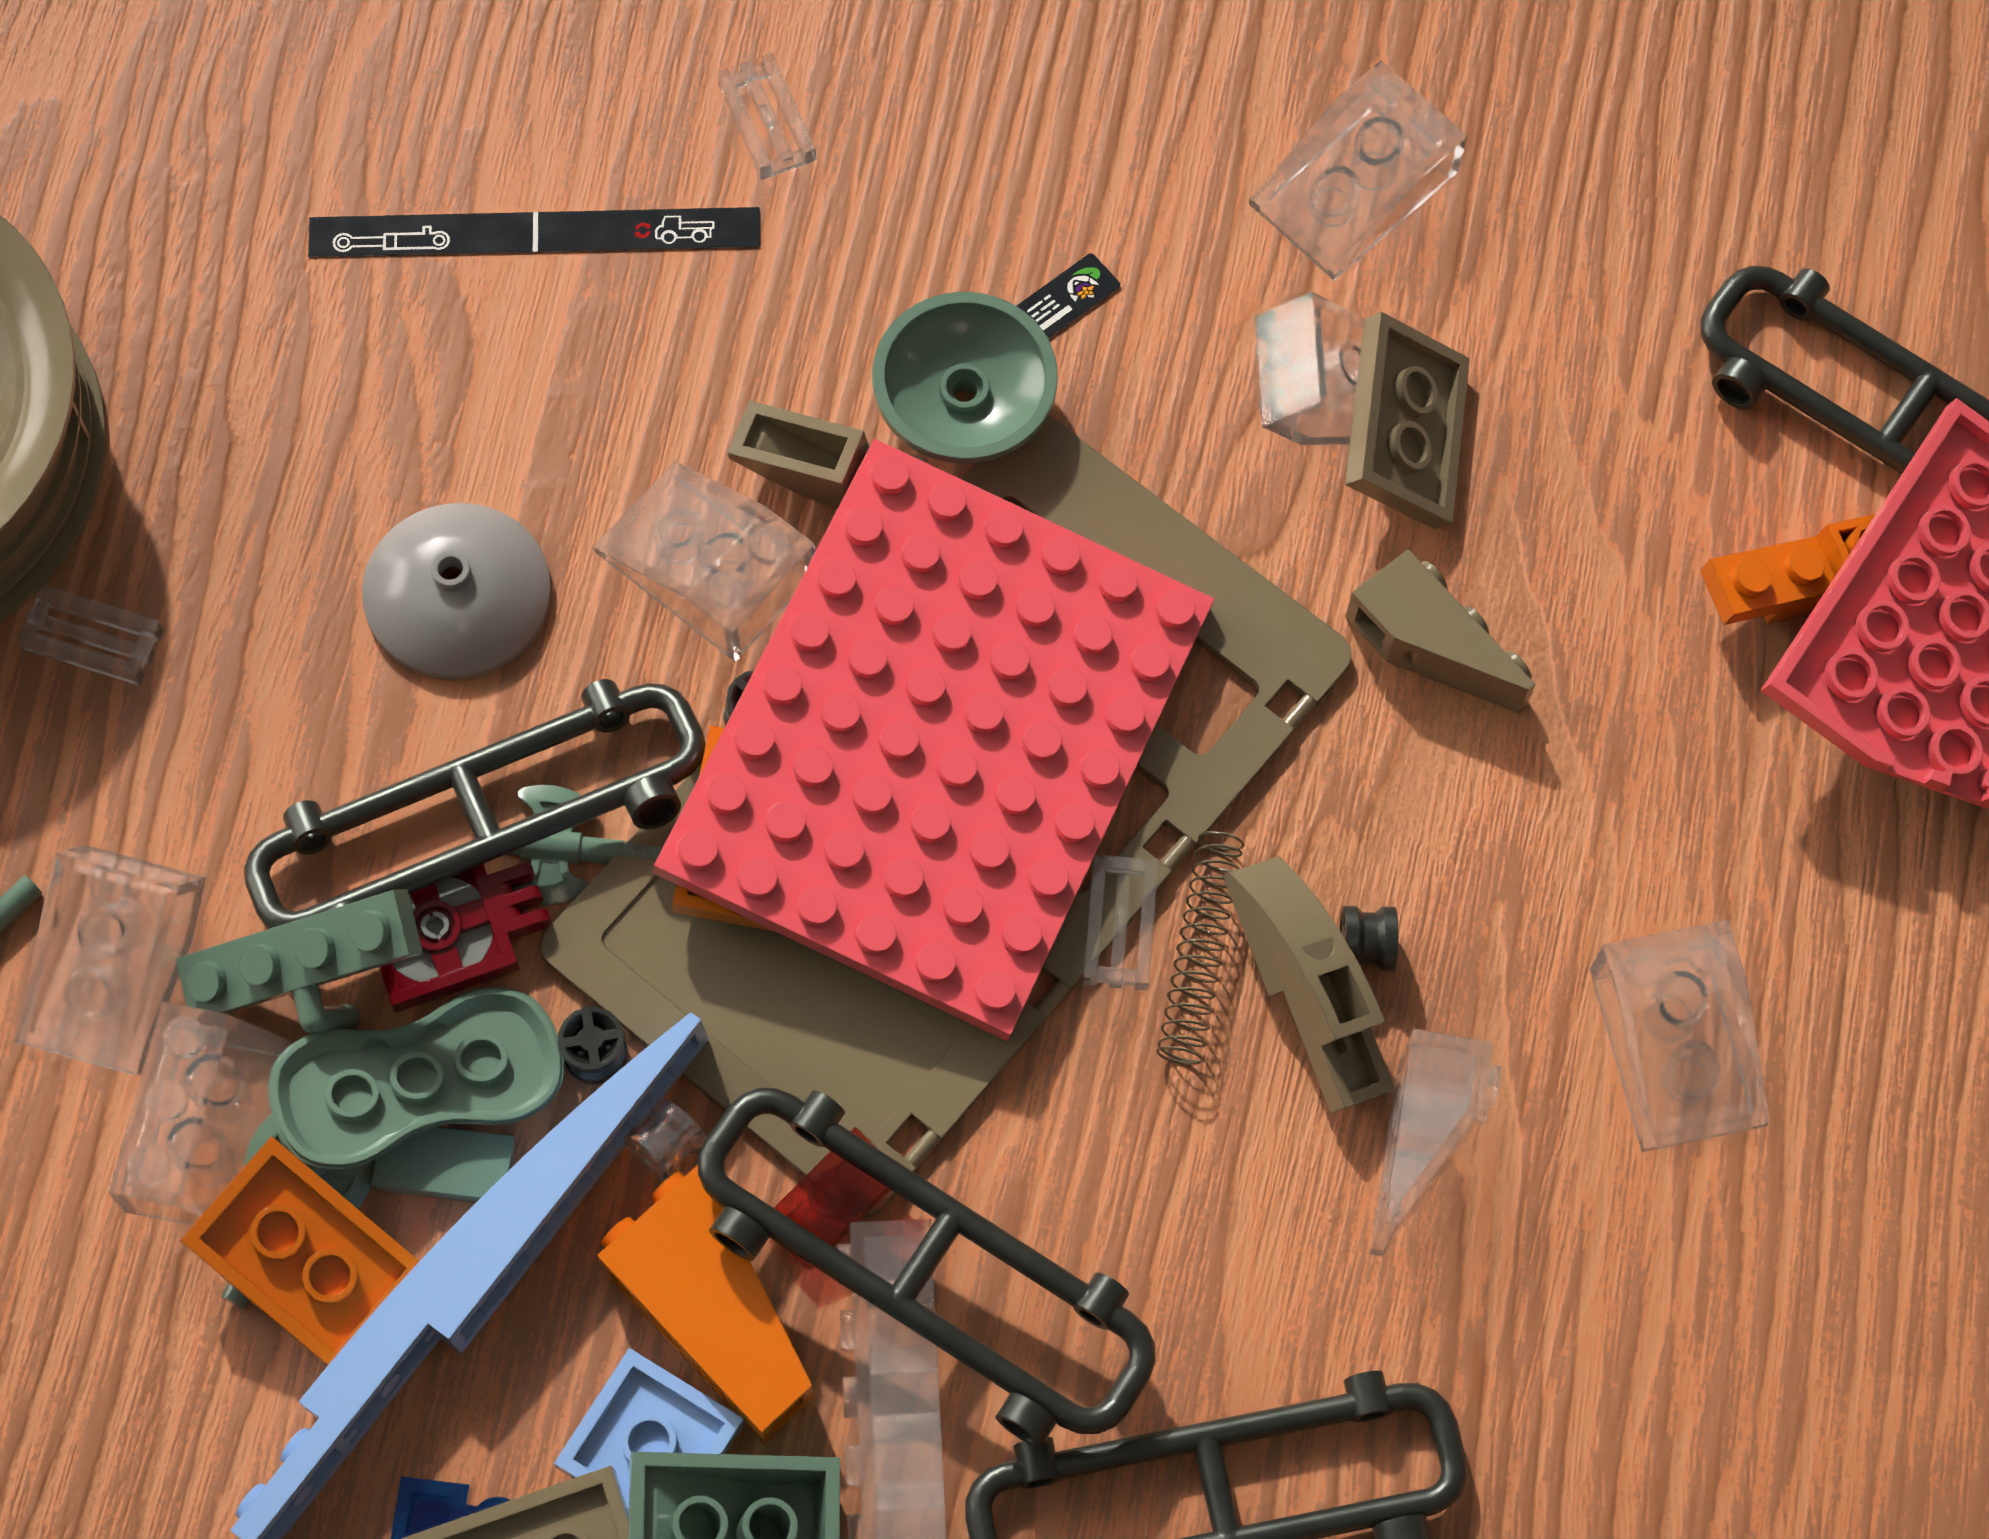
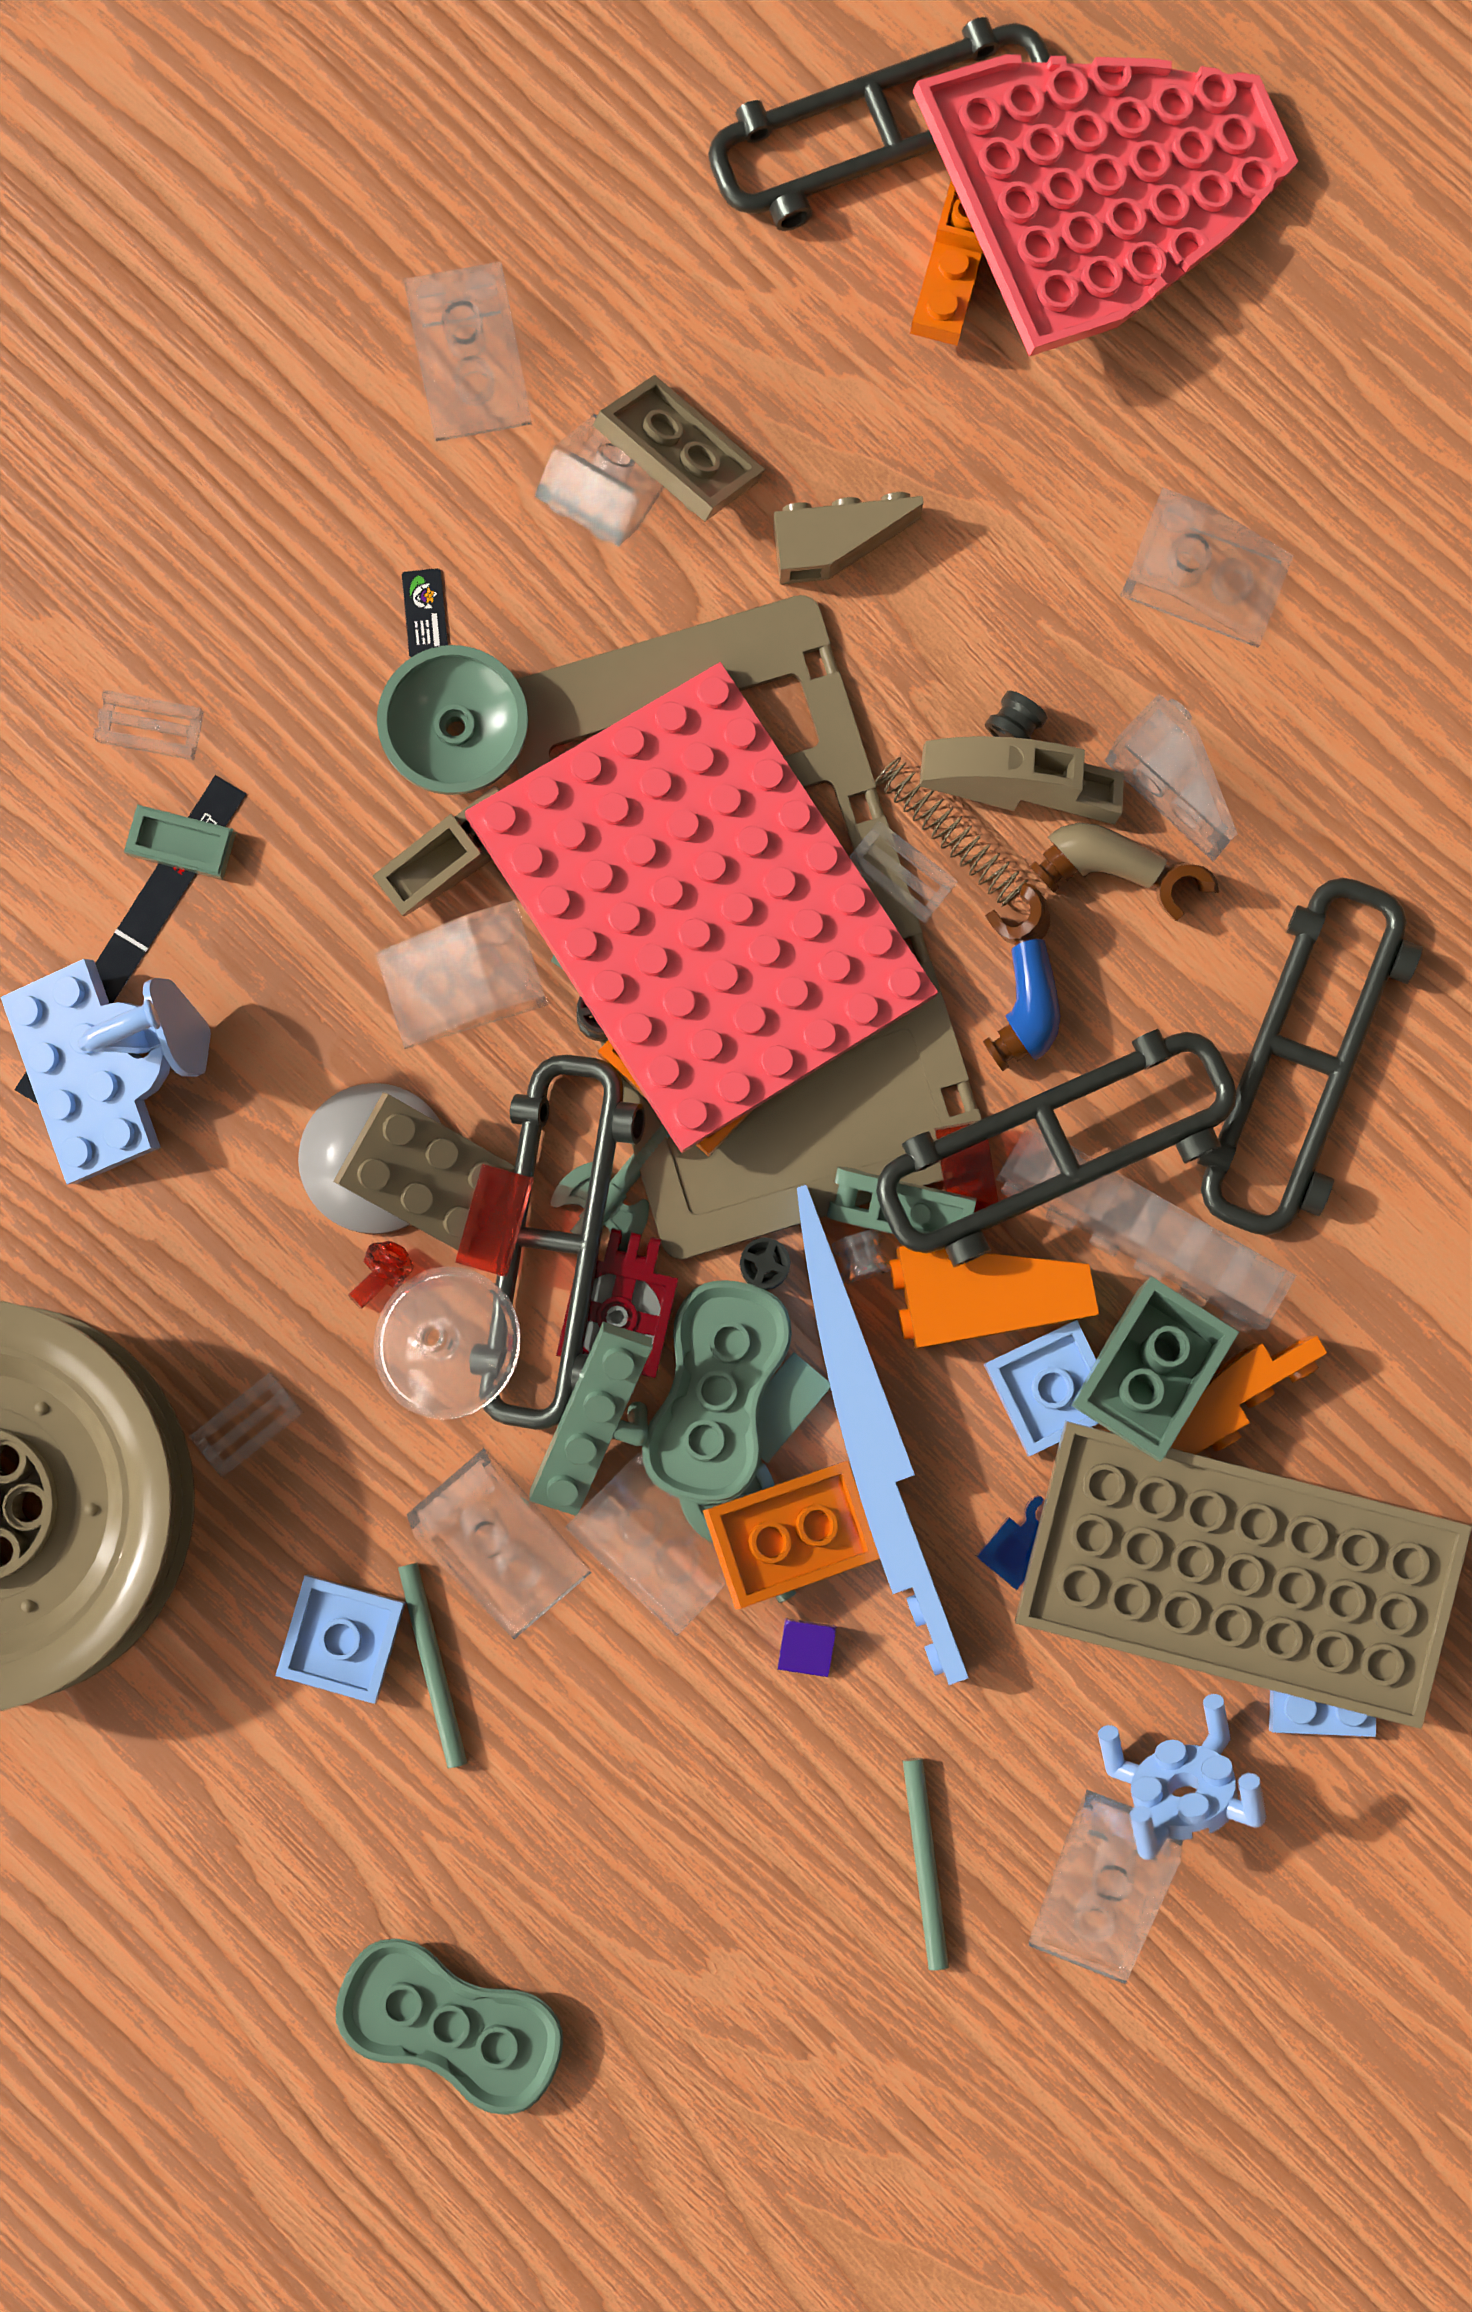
camera: 55 degrees left, 15 degrees up
(188, 1357) = (806, 1647): none -> dark purple slope
(302, 793) = (474, 1346): none -> clear dish
(347, 671) = (389, 1266): none -> clear red plate
(389, 269) = (89, 1063): none -> light blue plate
(459, 733) = (494, 1220): none -> clear red plate
(465, 637) = (416, 1169): none -> dark tan plate
(665, 213) = (180, 842): none -> sand green tile
(758, 1156) = (925, 1206): none -> sand green plate
(1062, 1157) = (1036, 1011): none -> blue piece
(1287, 1106) = (1097, 849): none -> dark tan piece

